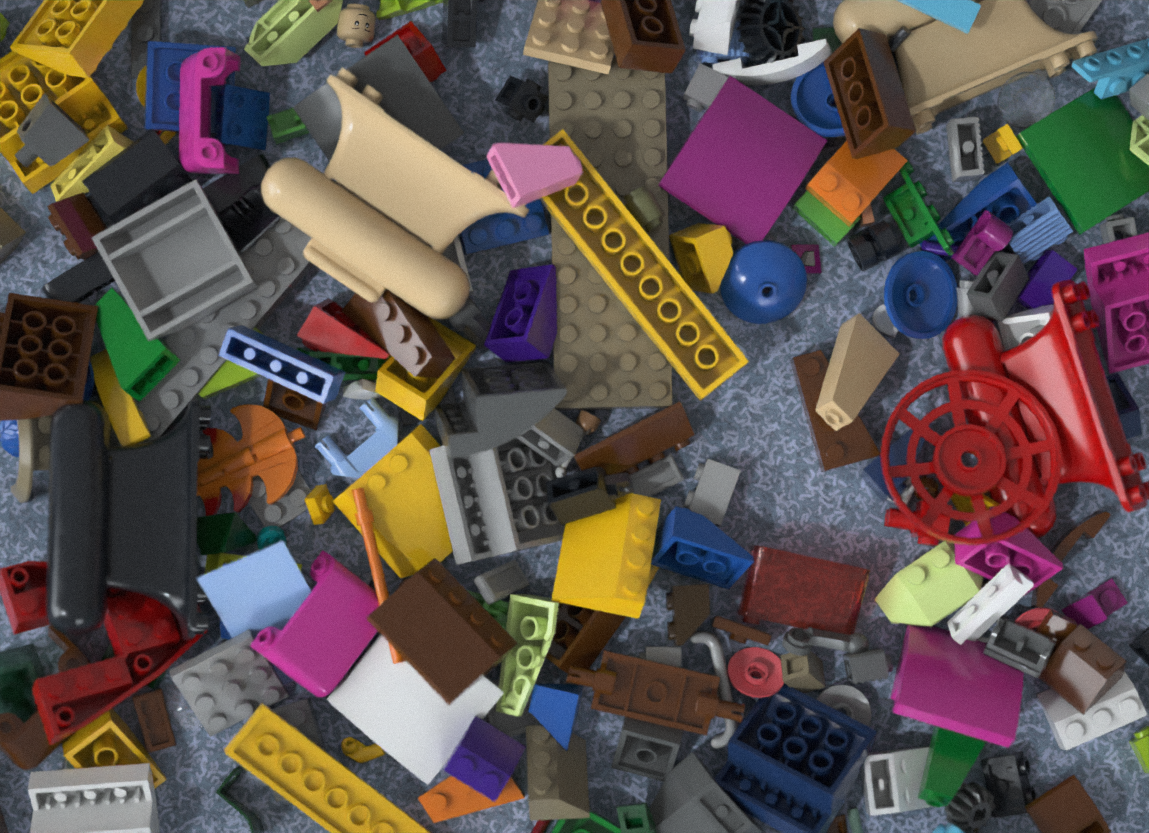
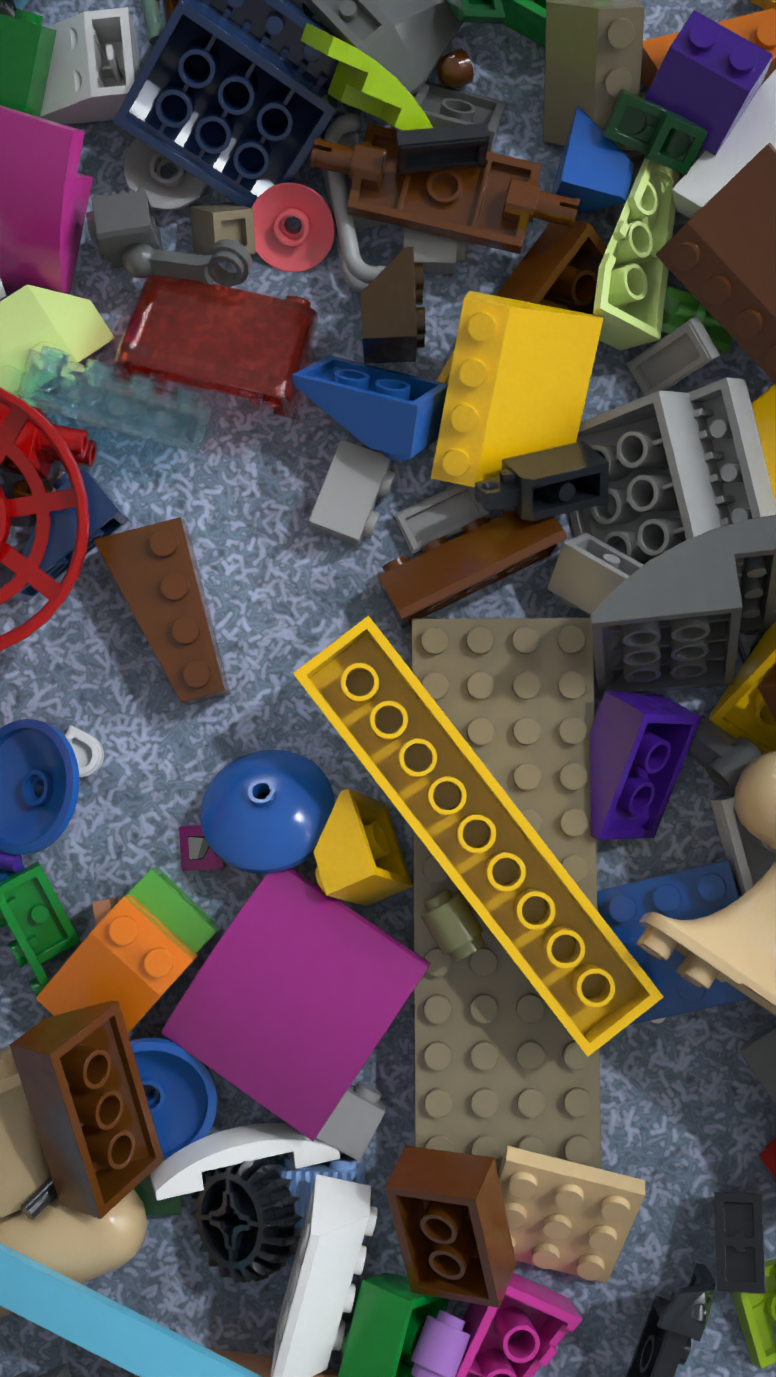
camera: 175 degrees left, 0 degrees up
(513, 728) = (654, 131): none -> dark green slope
(522, 99) = (639, 1106): black brick -> none
(533, 170) = (642, 987): bright pink slope -> none
(589, 424) = (537, 597): medium nougat hinge -> none
(647, 786) = (455, 69): none -> reddish brown hinge
(658, 711) = (441, 148): none -> black tile
(713, 756) = (366, 83): none -> lime slope
(740, 632) = (314, 287): reddish brown plate -> none
(854, 371) = (130, 664): tan slope -> none
(870, 545) = (113, 401): none -> clear light blue brick
(874, 245) = (92, 867): black wheel -> none

